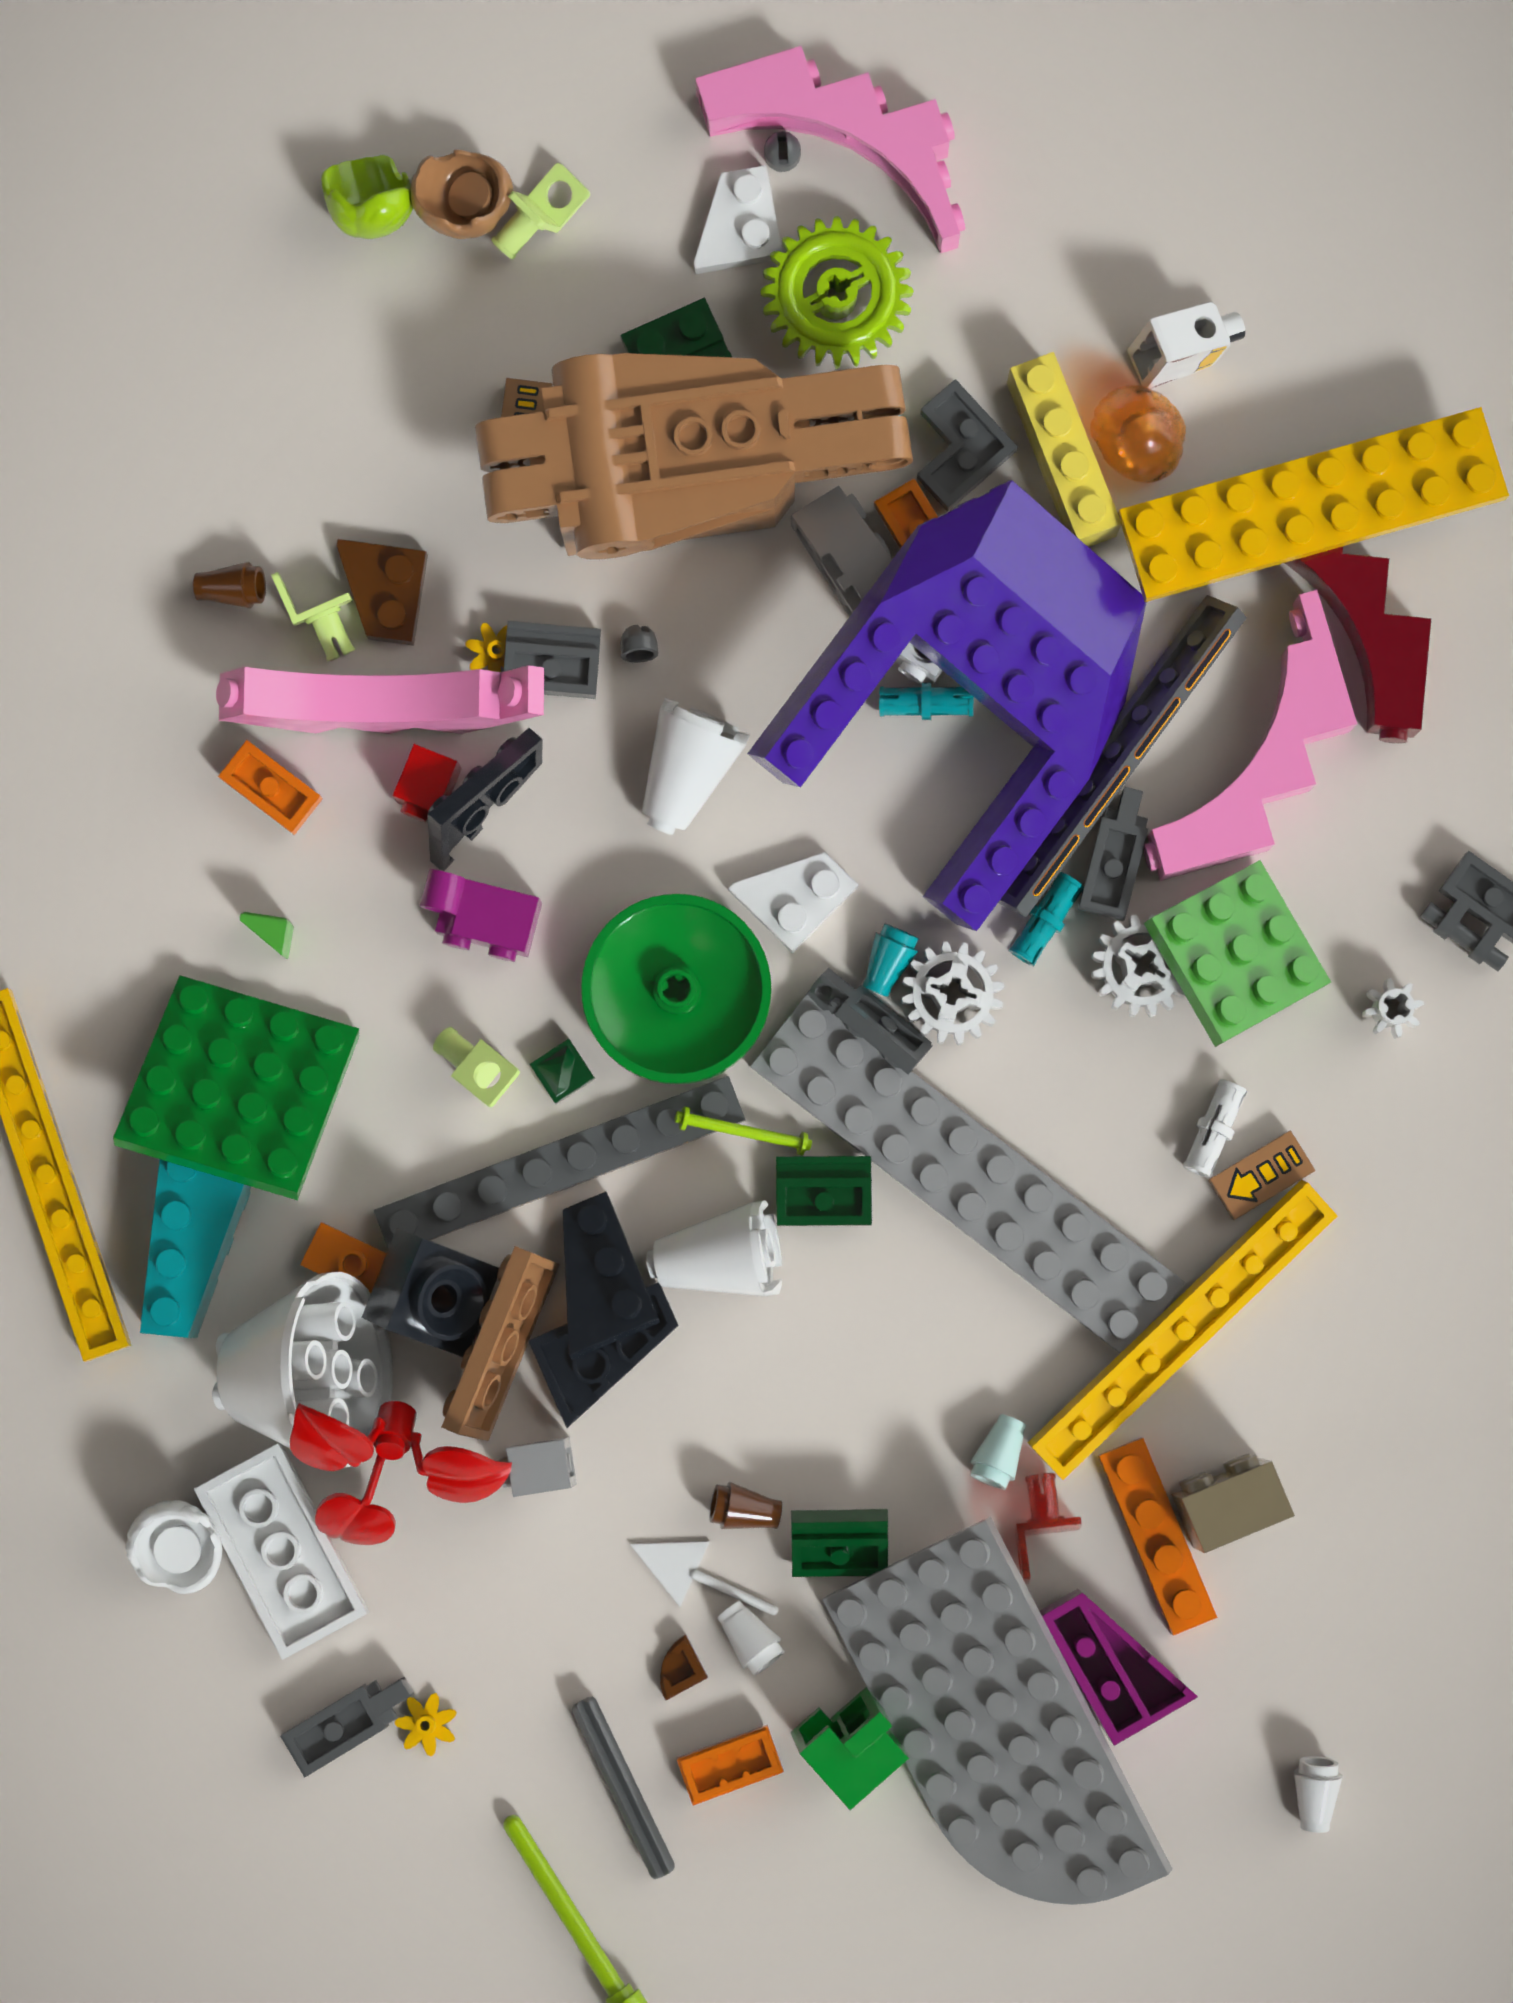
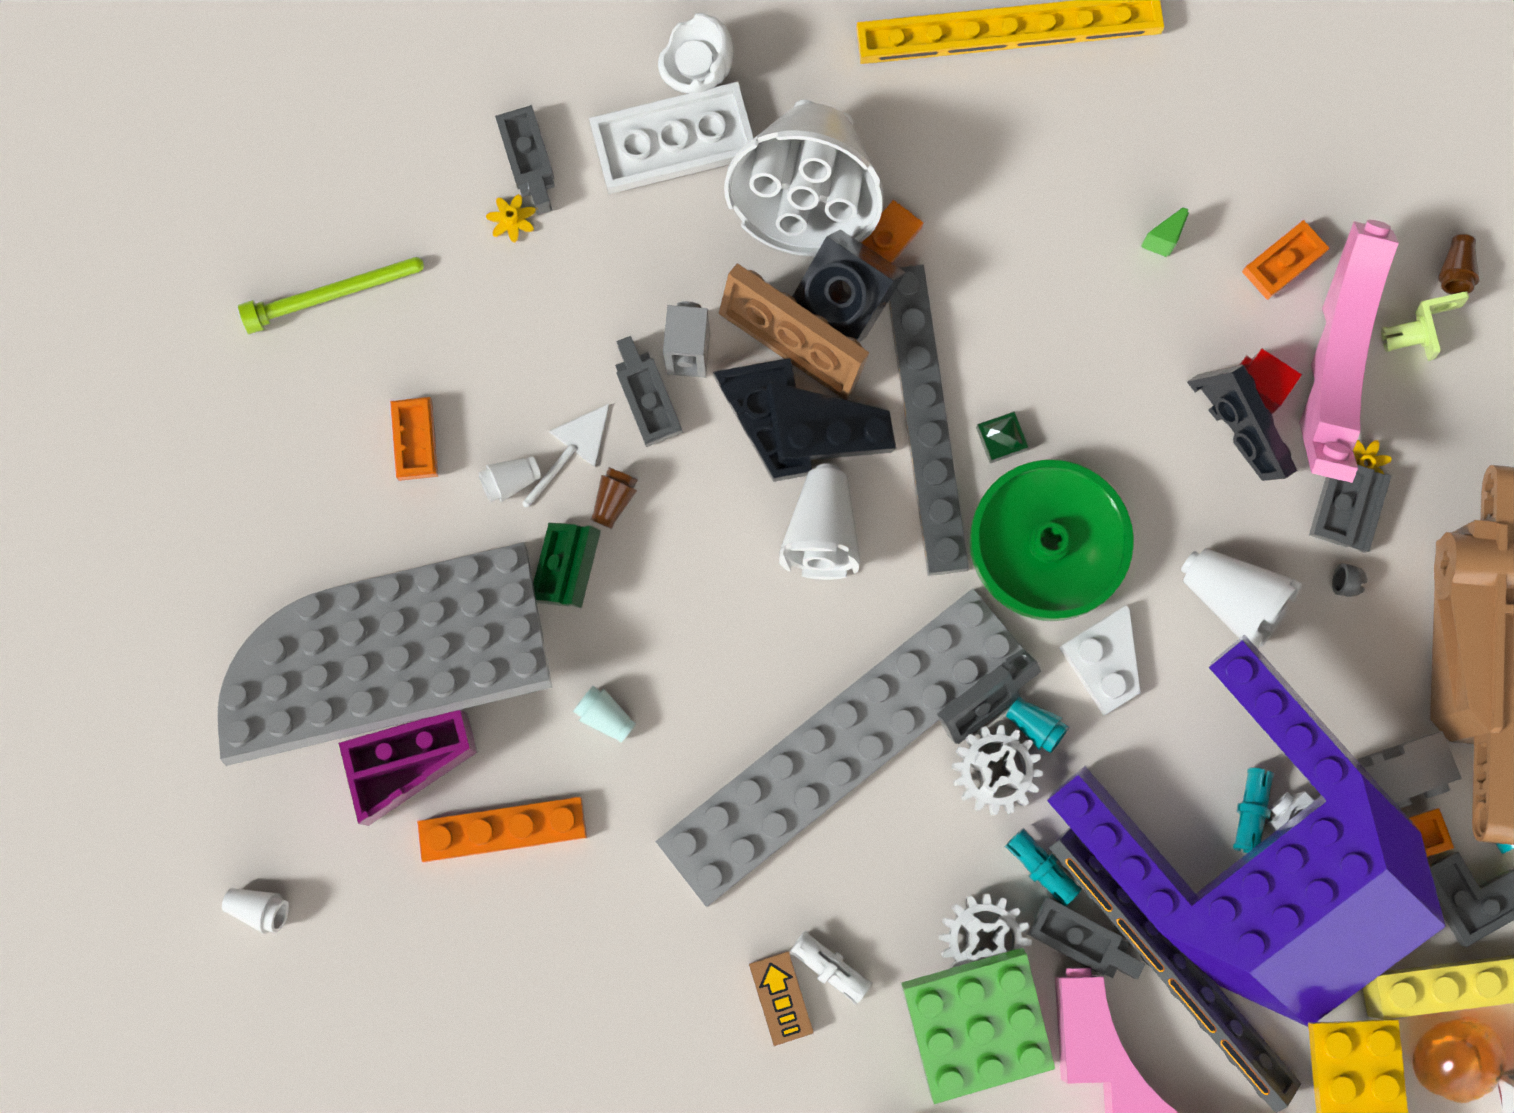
camera: 100 degrees right, 5 degrees down
(188, 1246) = (937, 121): teal wedge -> none
(237, 1087) = (1046, 177): green plate -> none
(331, 1445) = (739, 229): red plant -> none
(385, 588) = (1434, 388): reddish brown wing -> none
(476, 1065) = (1022, 367): yellowish green bracket -> none
(481, 915) = (1146, 400): magenta hinge -> none
(611, 1501) = (646, 394): none -> dark grey hinge
(623, 1788) = (420, 353): dark grey axle -> none
(680, 1668) = (500, 420): reddish brown tile -> none
(801, 1143) = (898, 614): lime axle -> none
(824, 1191) = (855, 623): dark green plate -> none
(853, 1749) = (397, 532): green plate -> none
(1044, 1517) = (541, 737): clear red bracket -> none
(1182, 1329) = (668, 897): yellow plate -> none
(1231, 1503) = (510, 895): dark tan brick -> none

